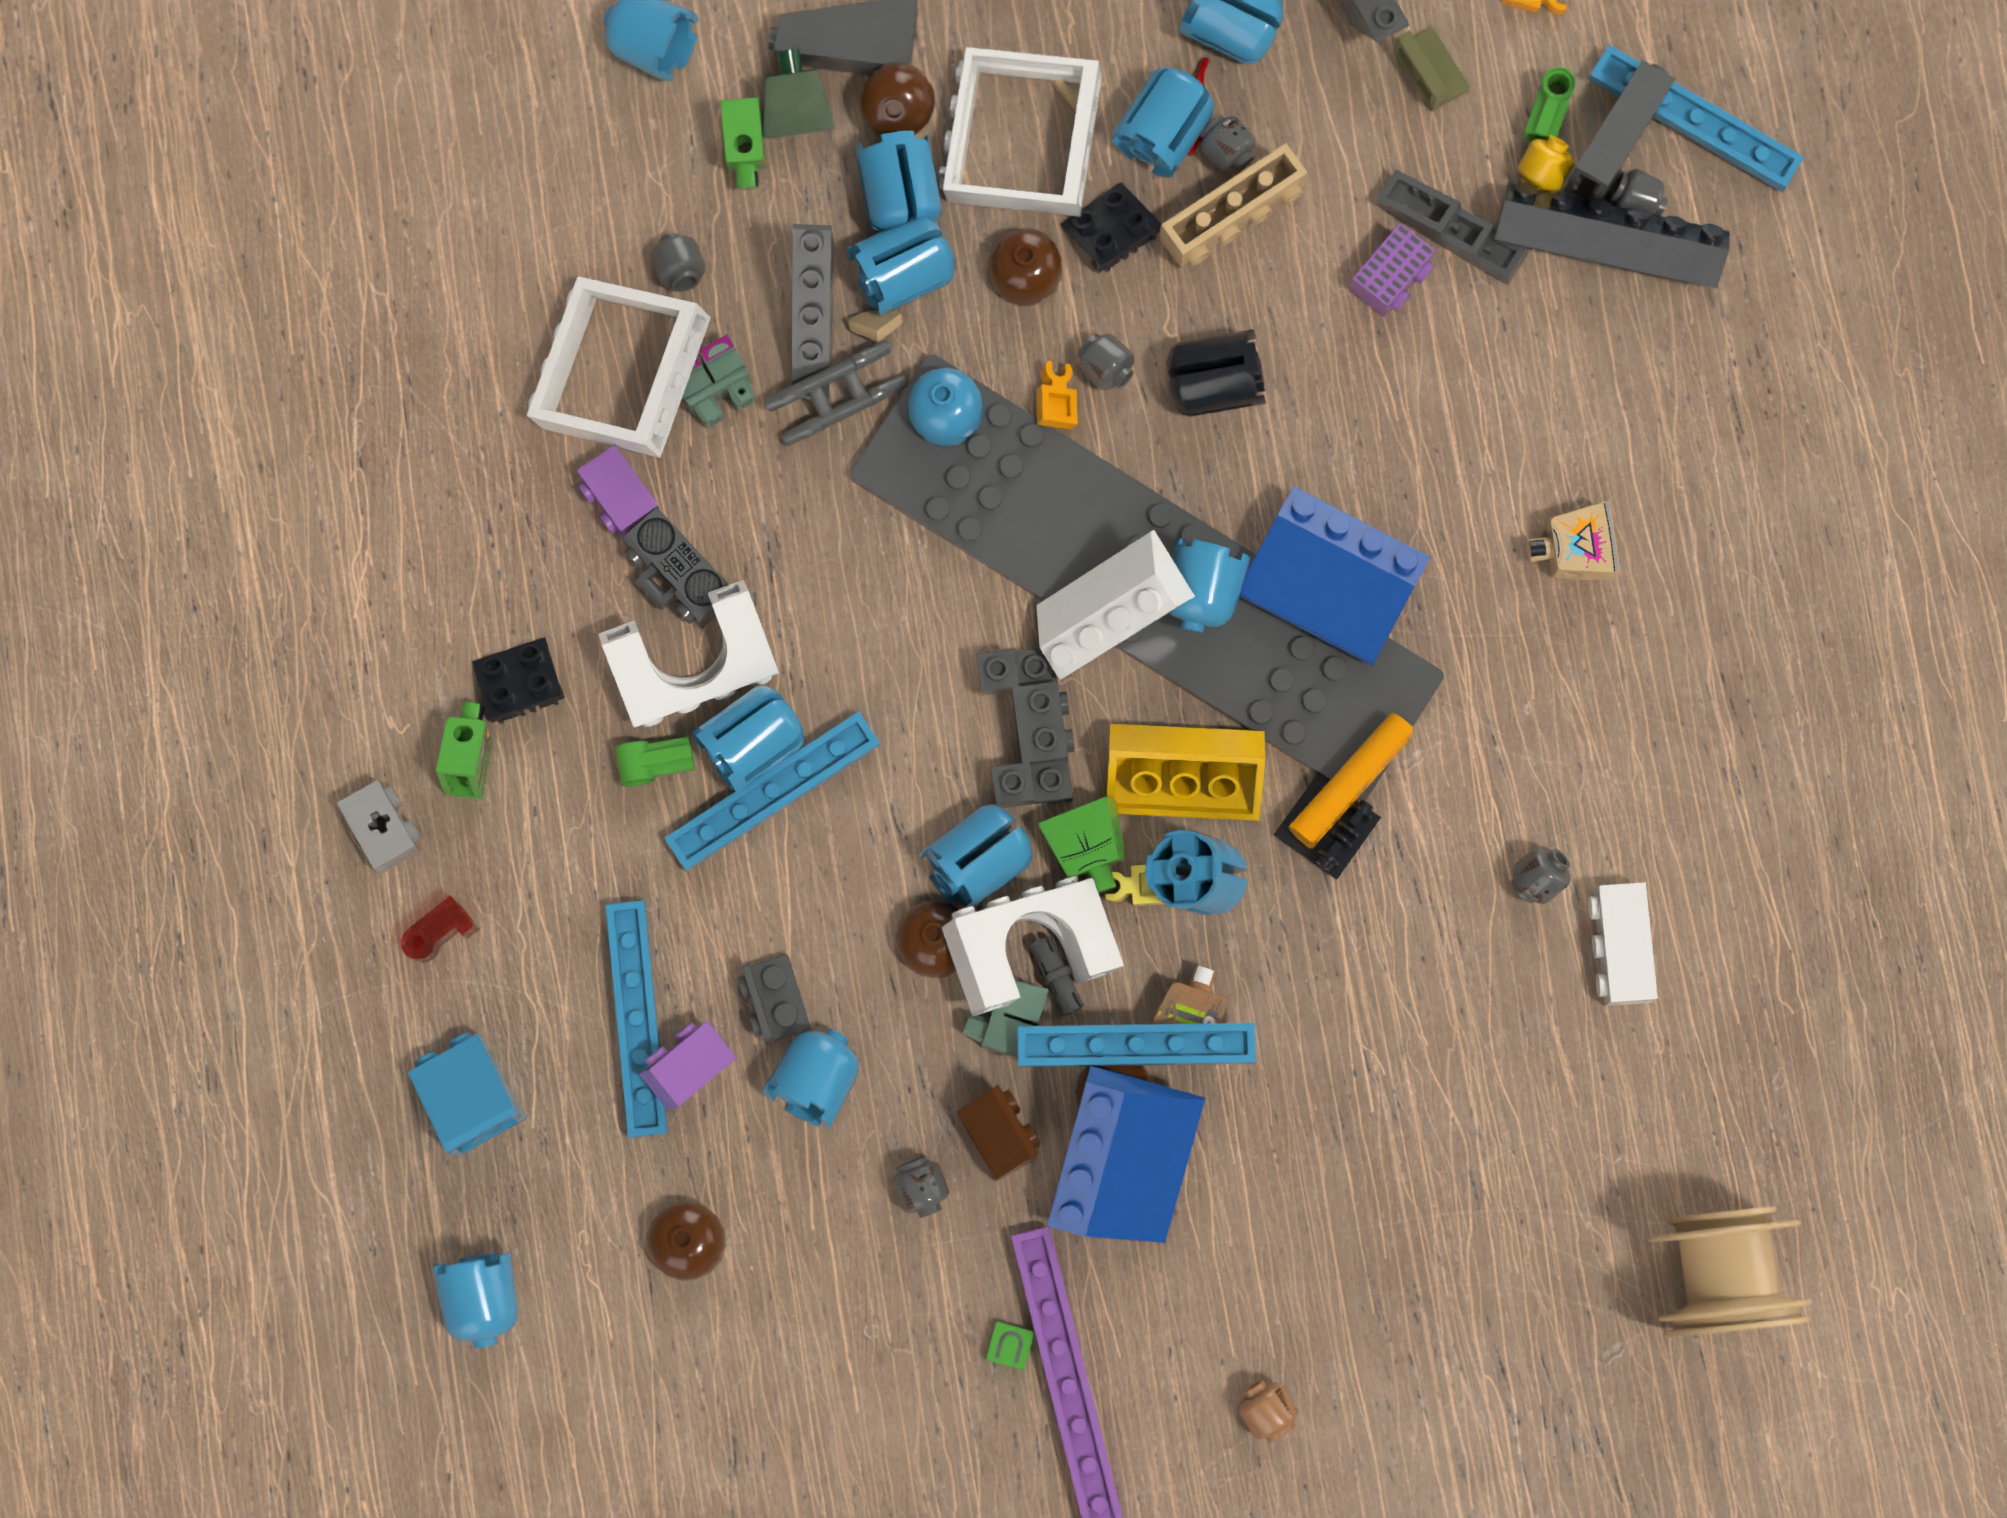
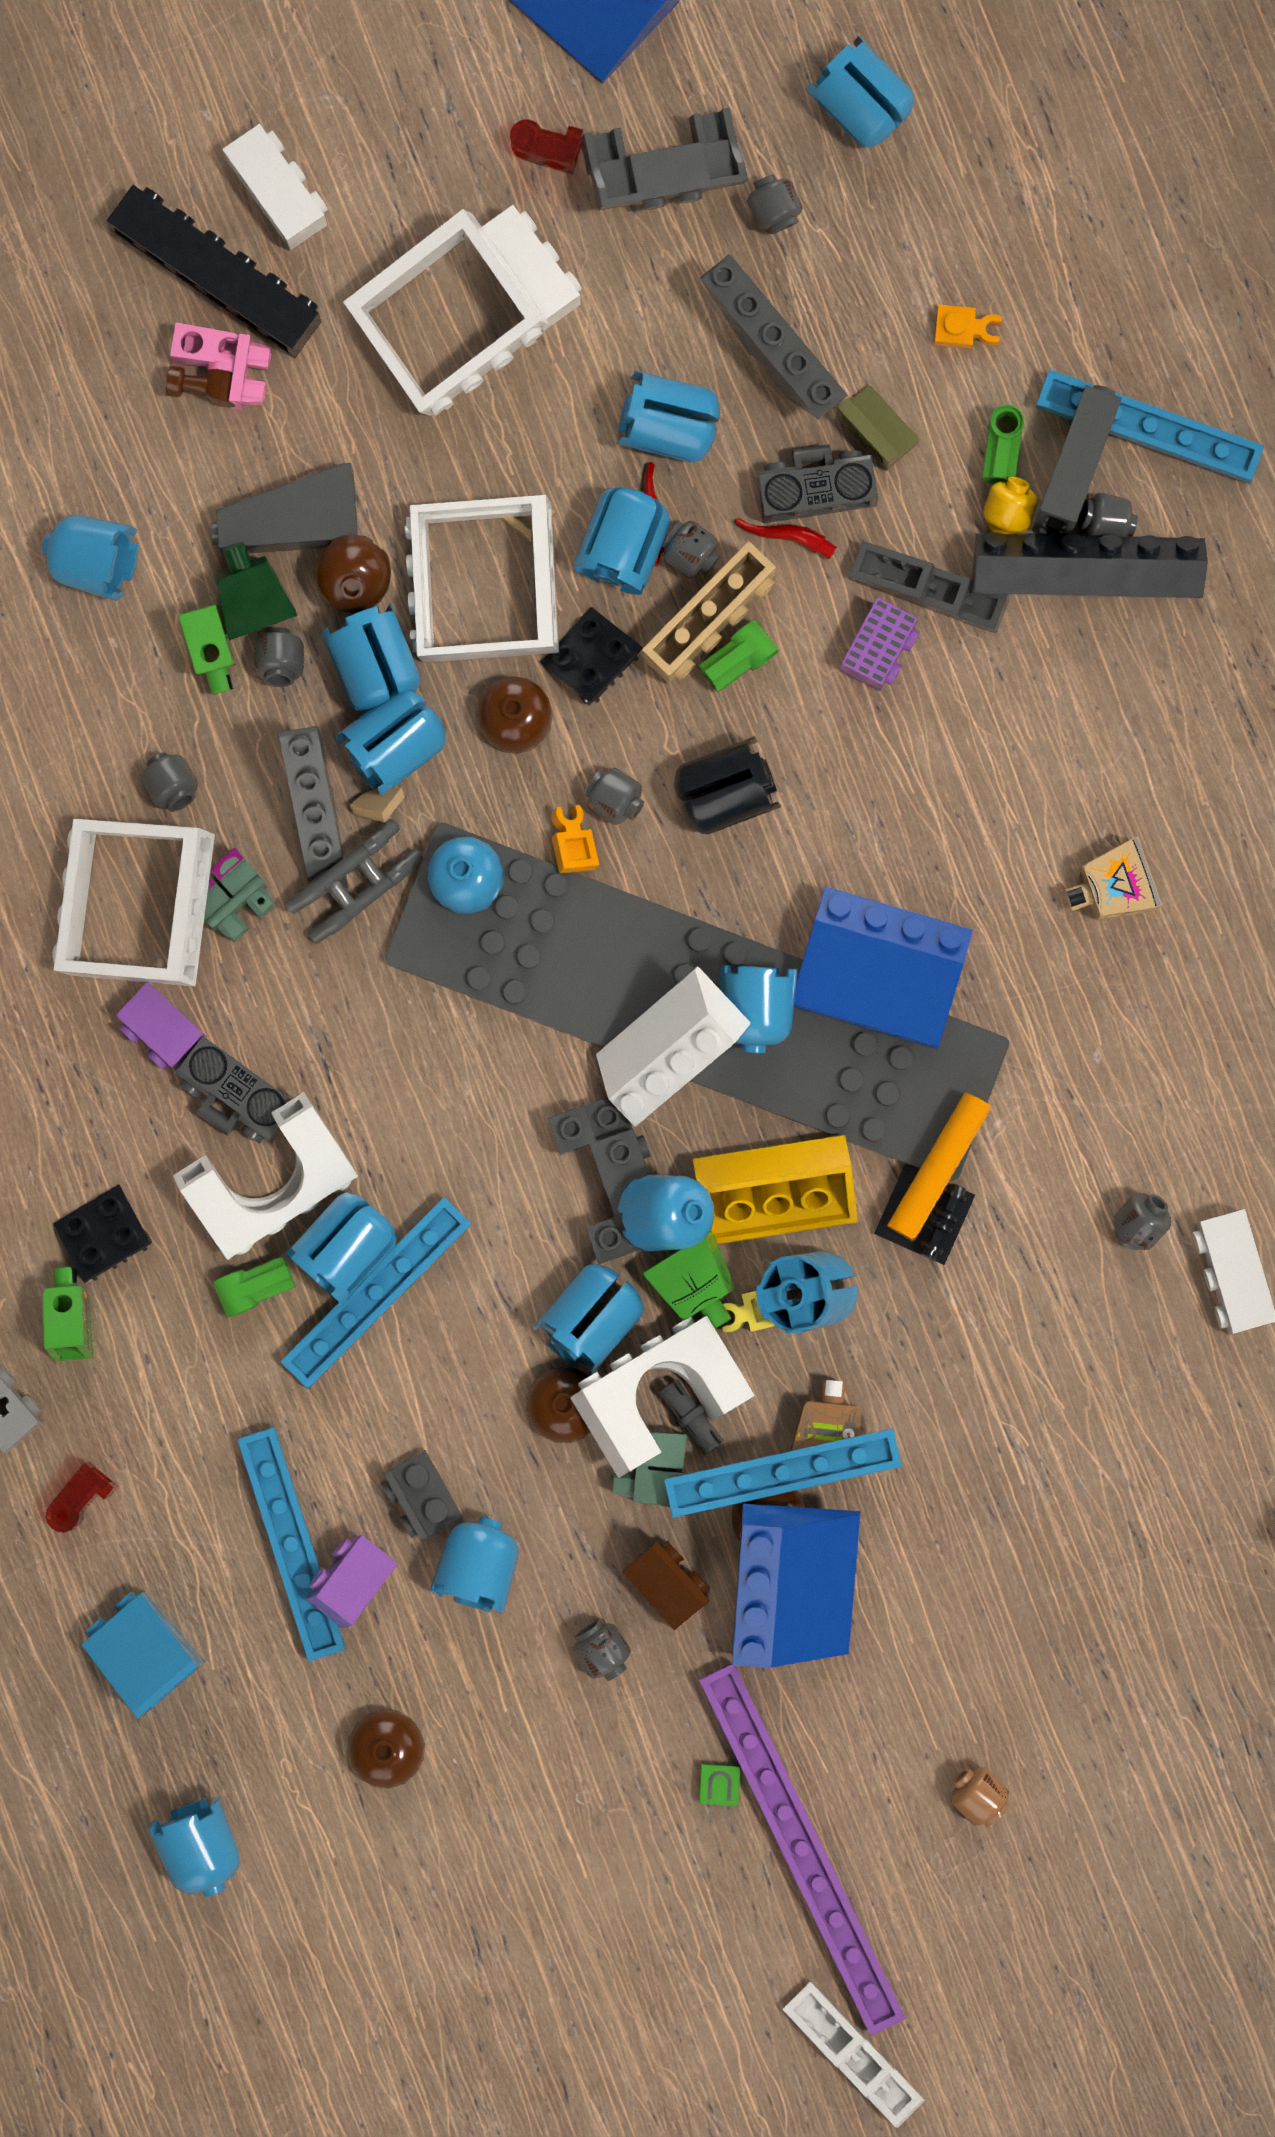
camera: 10 degrees left, 5 degrees up
(809, 166) = (279, 657): none -> dark grey head
(1073, 766) = (666, 1212): none -> dark azure cylinder
(1263, 250) = (746, 650): none -> bright green piece
(1342, 156) = (803, 535): none -> red animal
(1362, 114) = (820, 490): none -> dark grey piece

